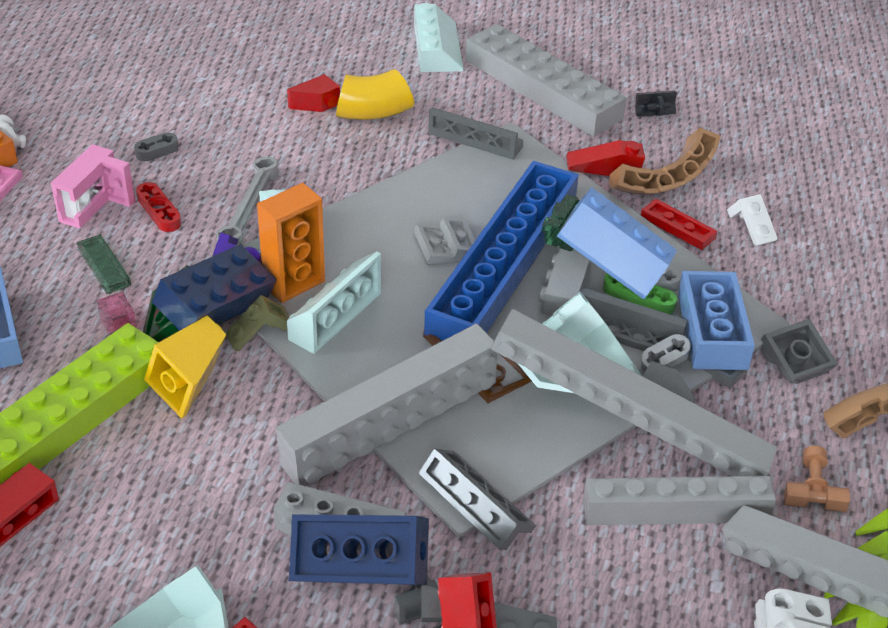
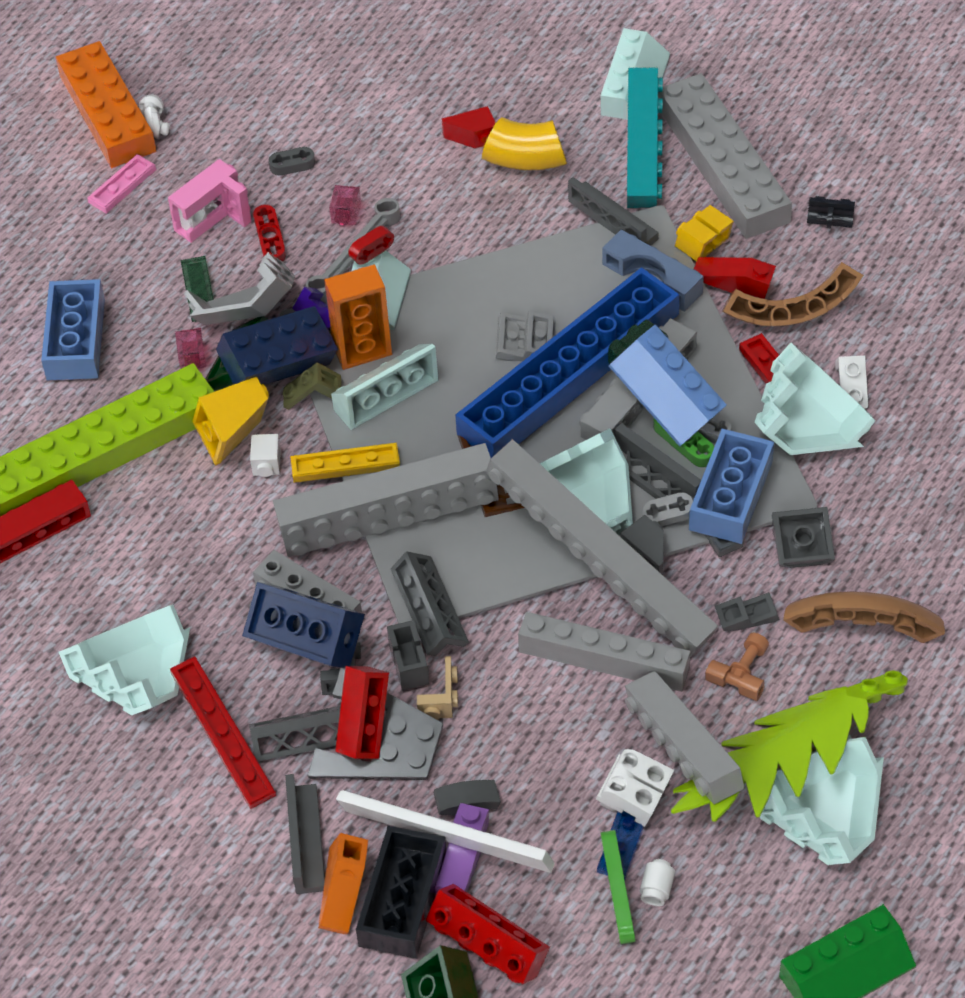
camera: 25 degrees right, 10 degrees up
(180, 250) = (249, 302): none -> light grey panel
(224, 169) = (345, 205): none -> clear pink brick
(235, 394) = (265, 455): none -> white brick
(275, 182) = (371, 245): none -> red beam
(320, 384) = (344, 462): none -> yellow tile
(472, 547) = (408, 655): none -> dark grey piece
(473, 72) = (643, 136): none -> teal brick
(509, 159) = (628, 254): none -> sand blue arch
(542, 596) = (441, 705): none -> tan bracket
(561, 133) = (703, 232): none -> yellow piece
(739, 244) = (808, 409): none -> light aqua panel
(788, 431) = (747, 614): none -> dark grey slope

